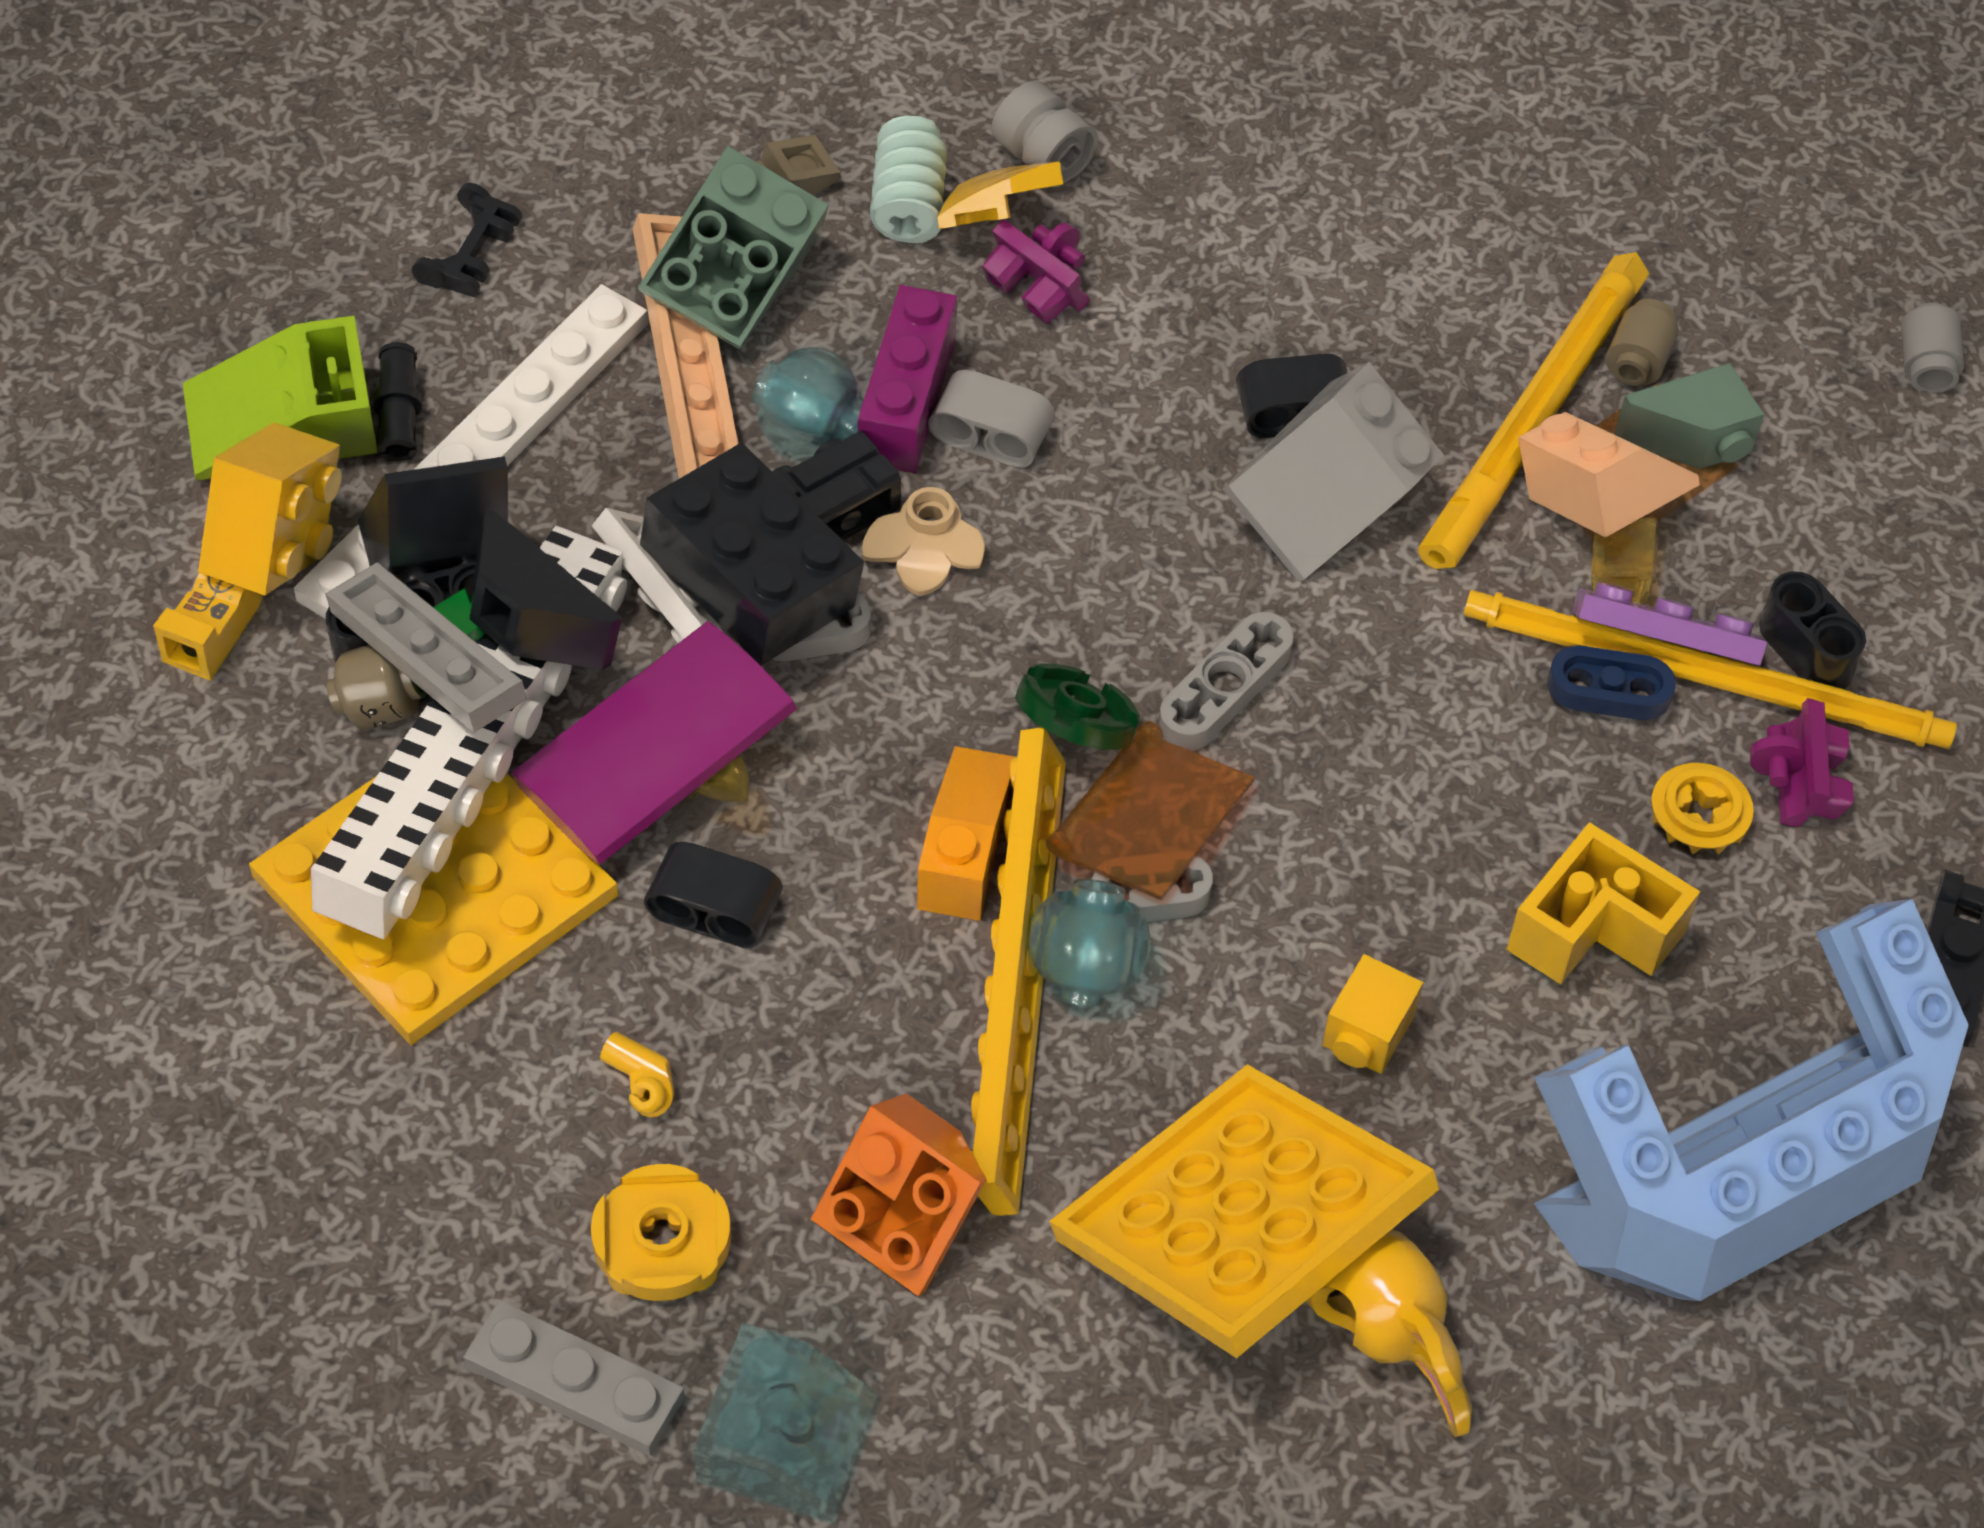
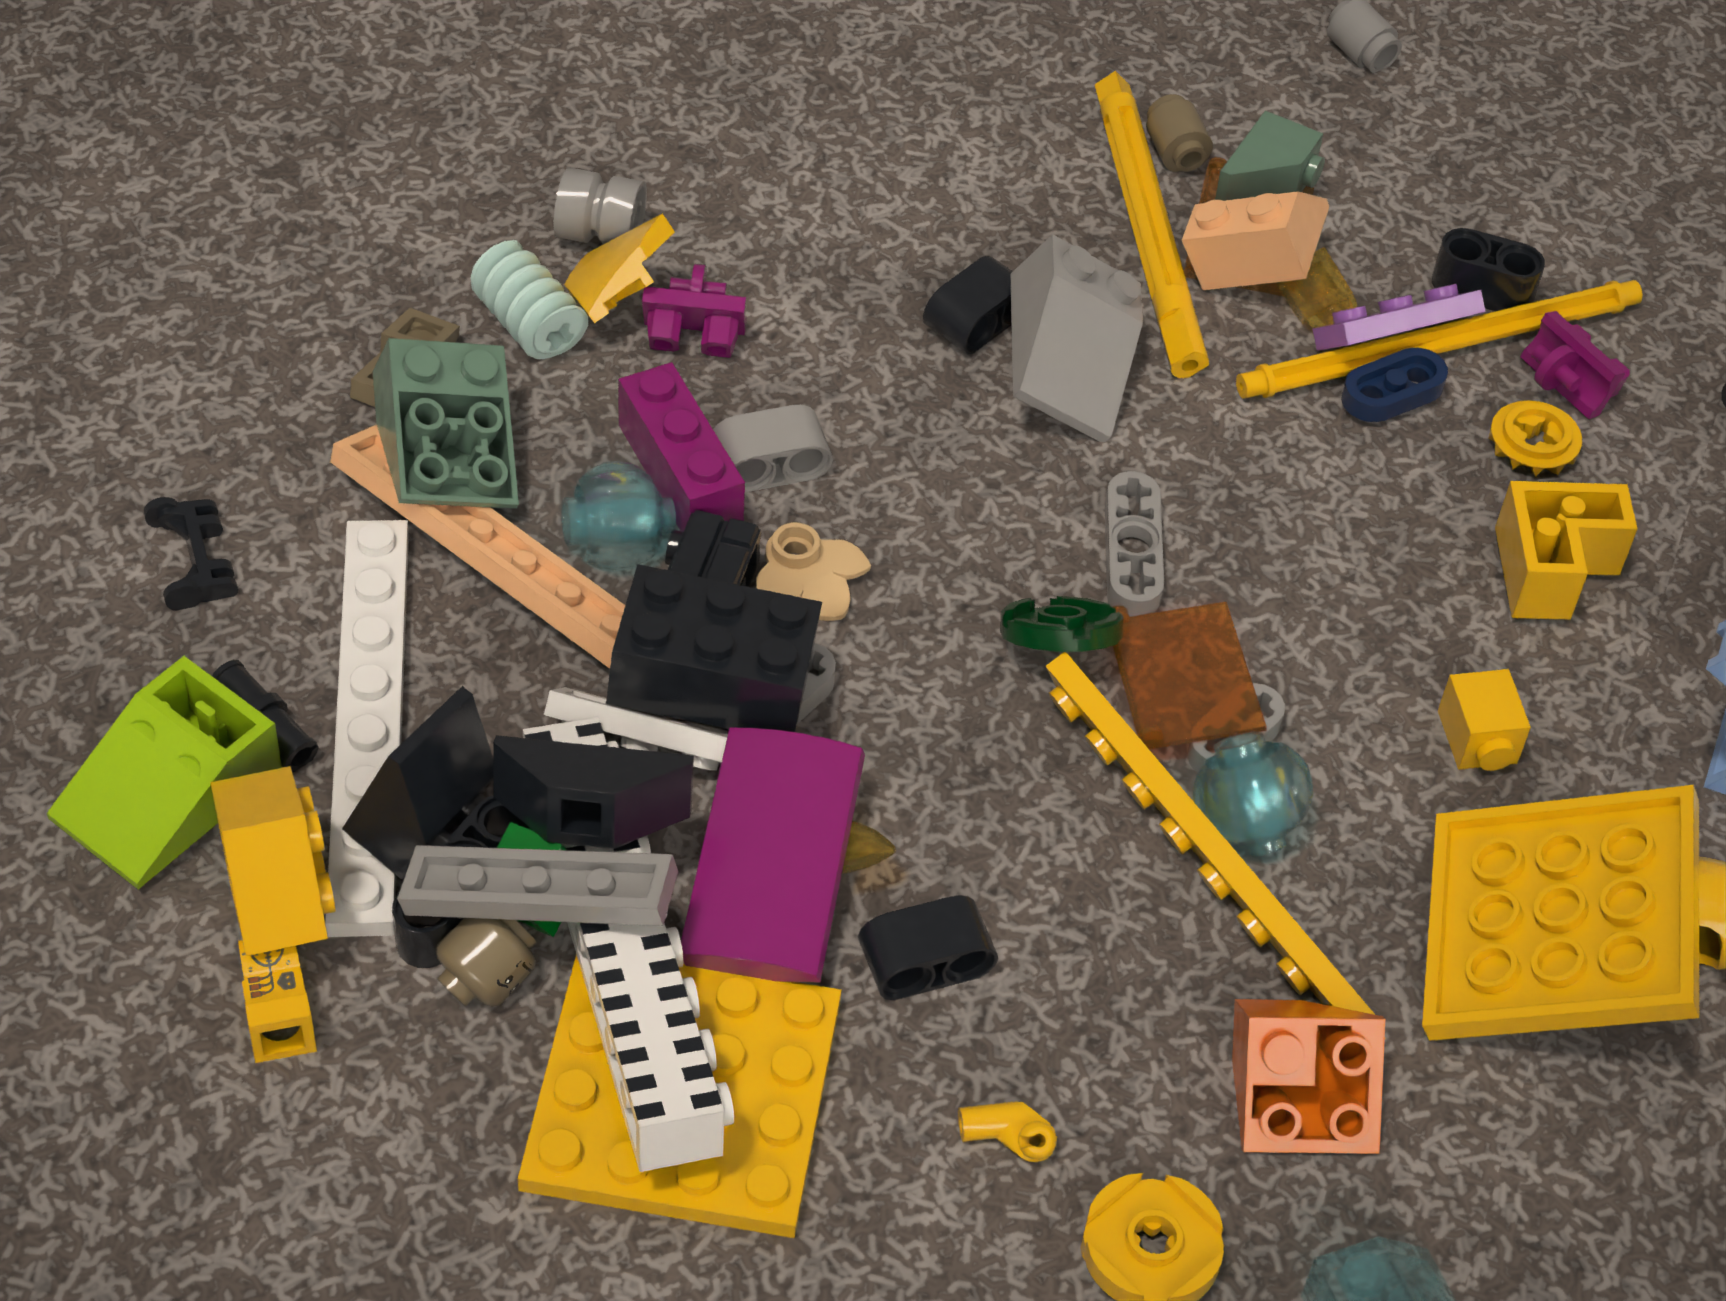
camera: 40 degrees left, 5 degrees down
(964, 834) = (1069, 775): light orange slope -> none

